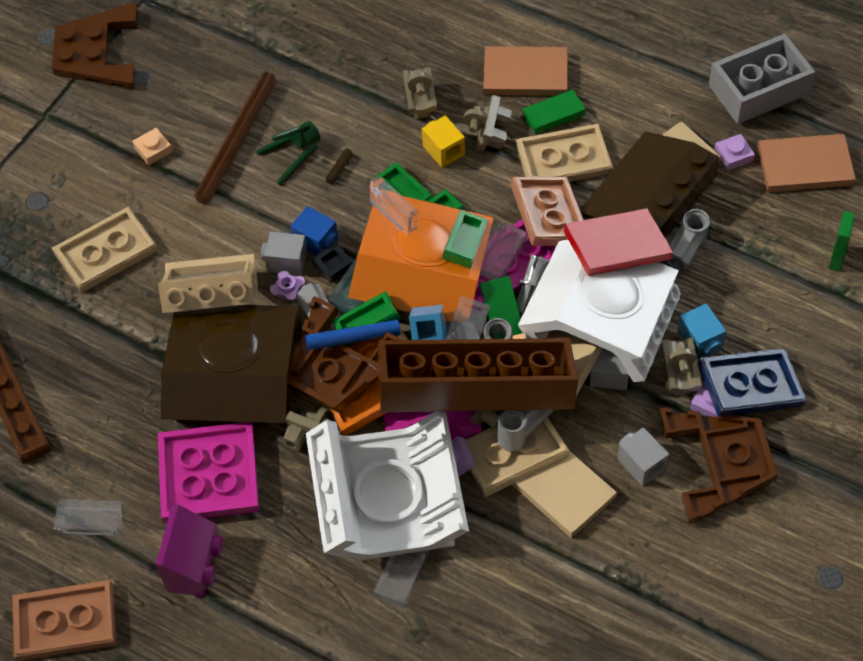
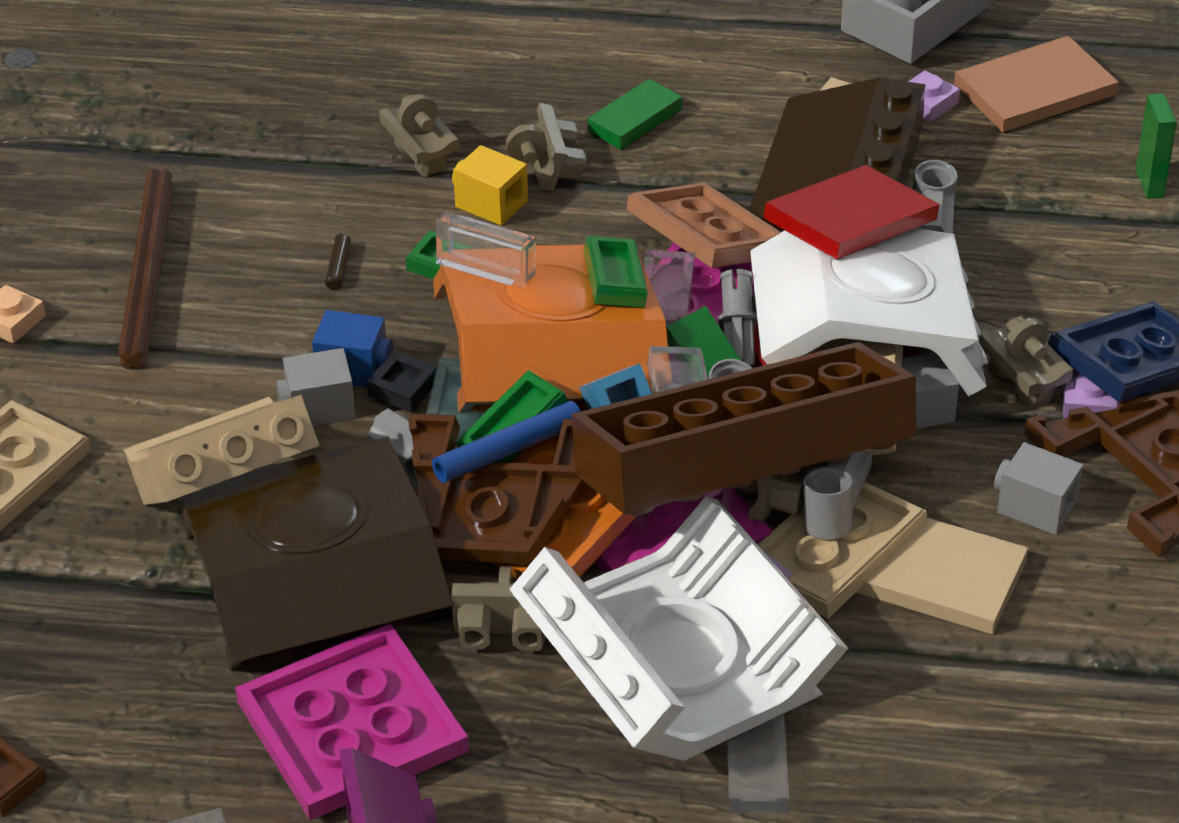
camera: 25 degrees left, 15 degrees down
(287, 293) = (342, 430): lavender plate -> none
(302, 136) = (261, 235): dark green plant -> none
(525, 71) = (561, 75): nougat tile -> none
(566, 153) = (684, 154): tan tile -> none
(704, 328) = (1025, 297): dark azure brick -> none

